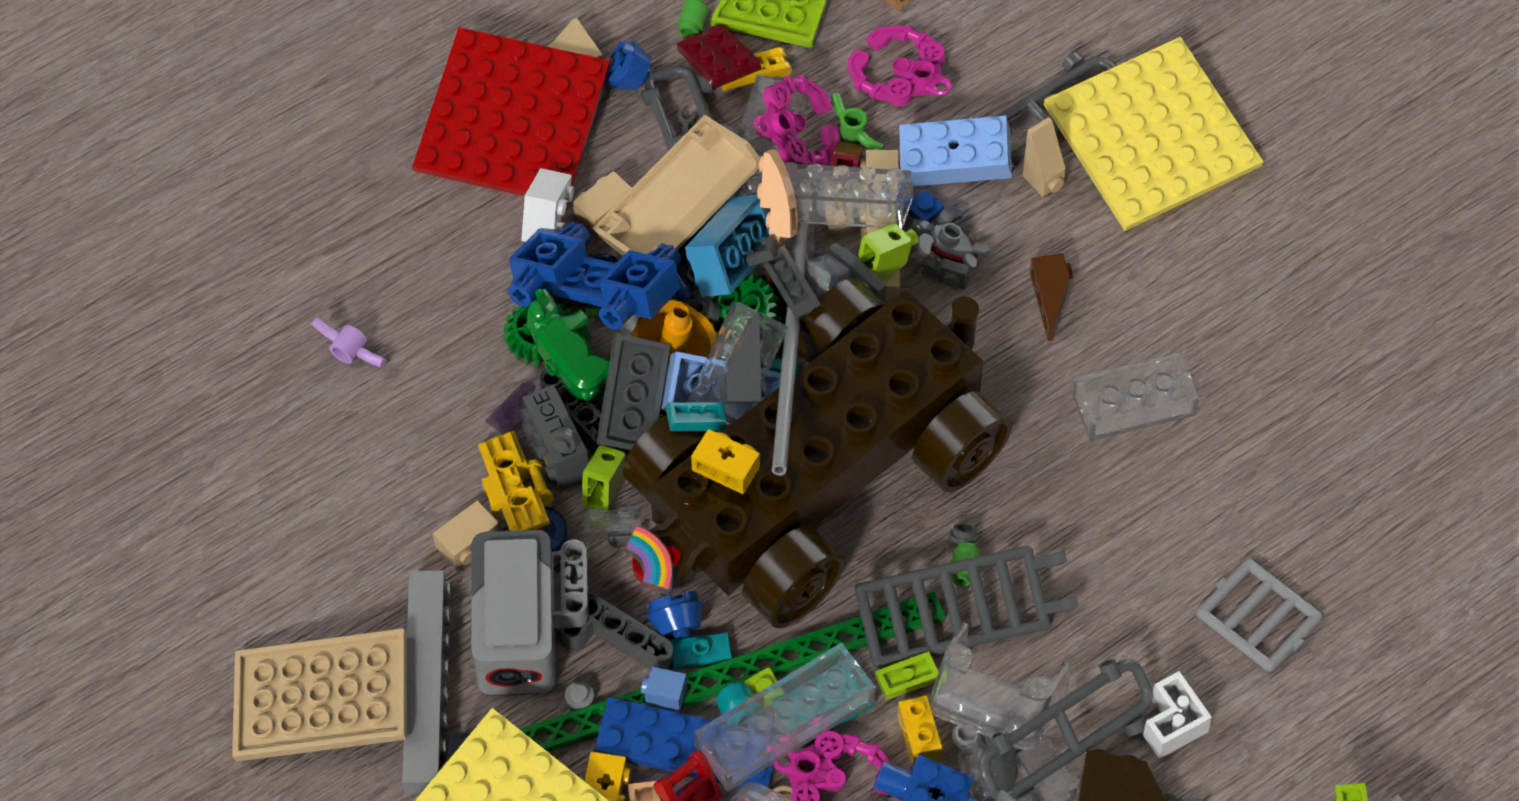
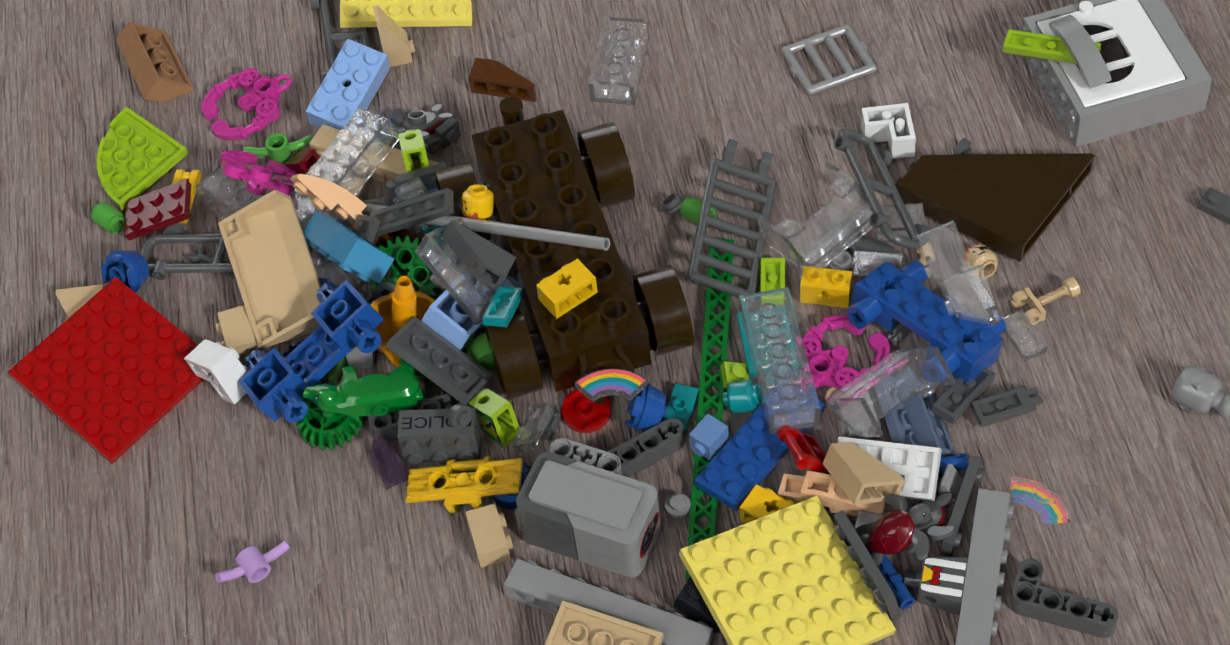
camera: 60 degrees left, 5 degrees down
(818, 334) = (478, 202): none -> yellow head

